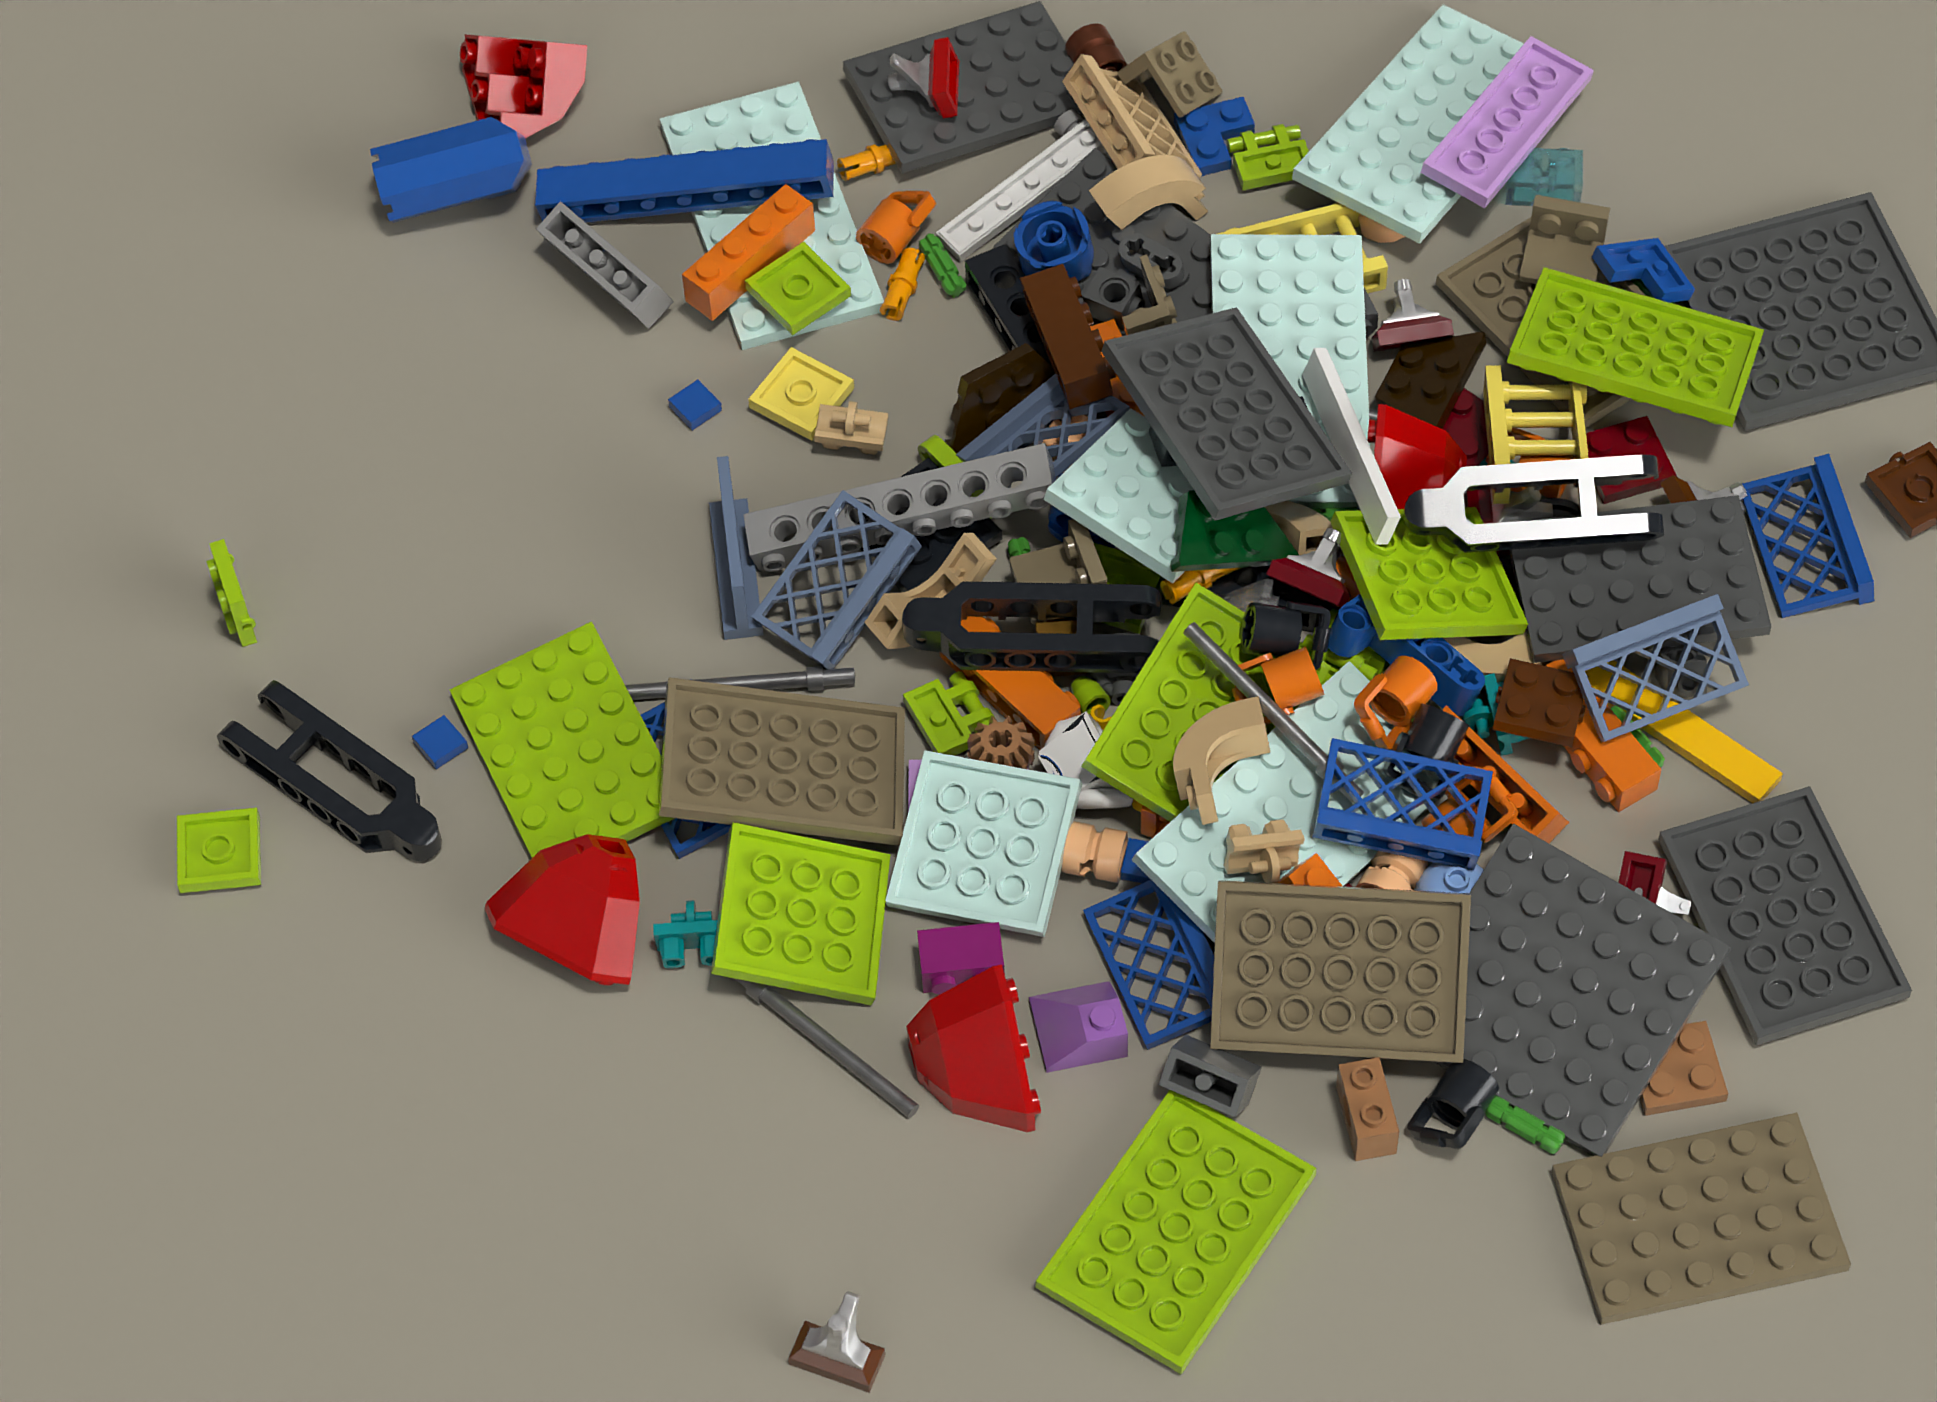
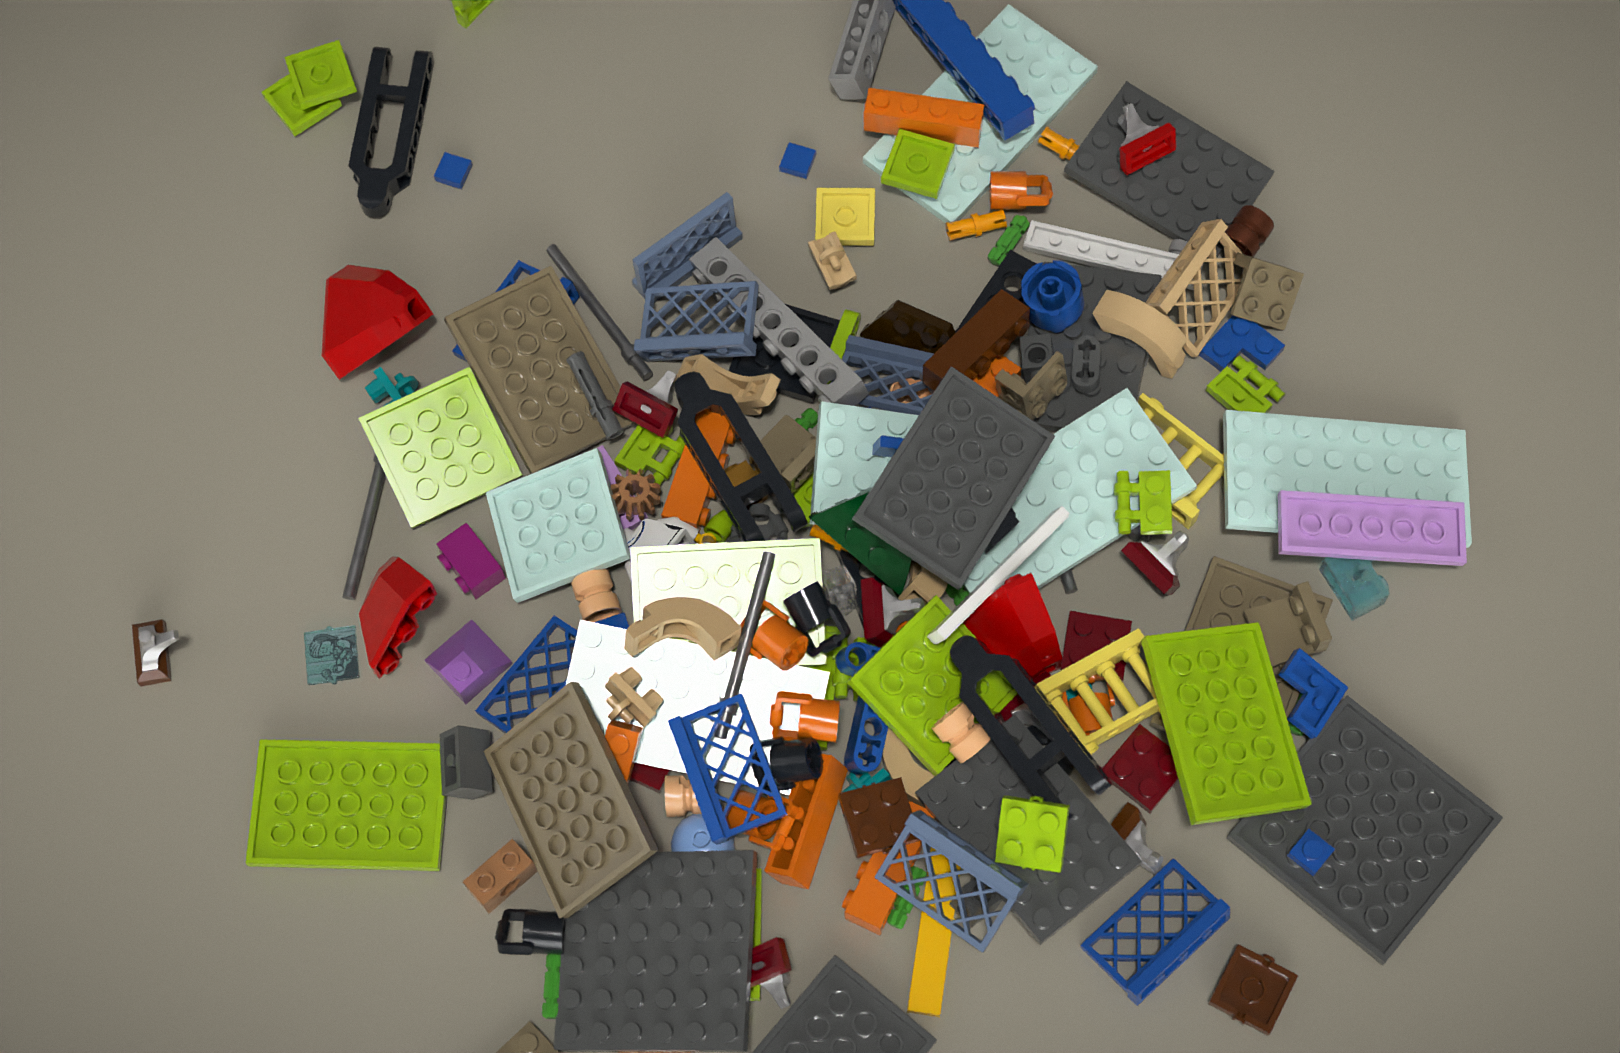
camera: 60 degrees right, 10 degrees up
(213, 804) = (320, 74): none -> lime plate
(565, 743) = (490, 236): lime plate -> none
(856, 723) = (595, 396): none -> dark grey pin
(904, 681) = (648, 407): none -> dark red piece
(972, 1164) = (331, 655): none -> clear light blue piece
(1144, 455) = (886, 446): none -> blue tile
(1357, 276) = (1154, 502): none -> lime plate
(1431, 376) = (1117, 600): dark brown wing -> none
(1505, 570) = (961, 732): none -> light nougat wheel
(1660, 558) = (1032, 833): none -> lime plate
(1811, 360) = (1311, 852): none -> blue plate

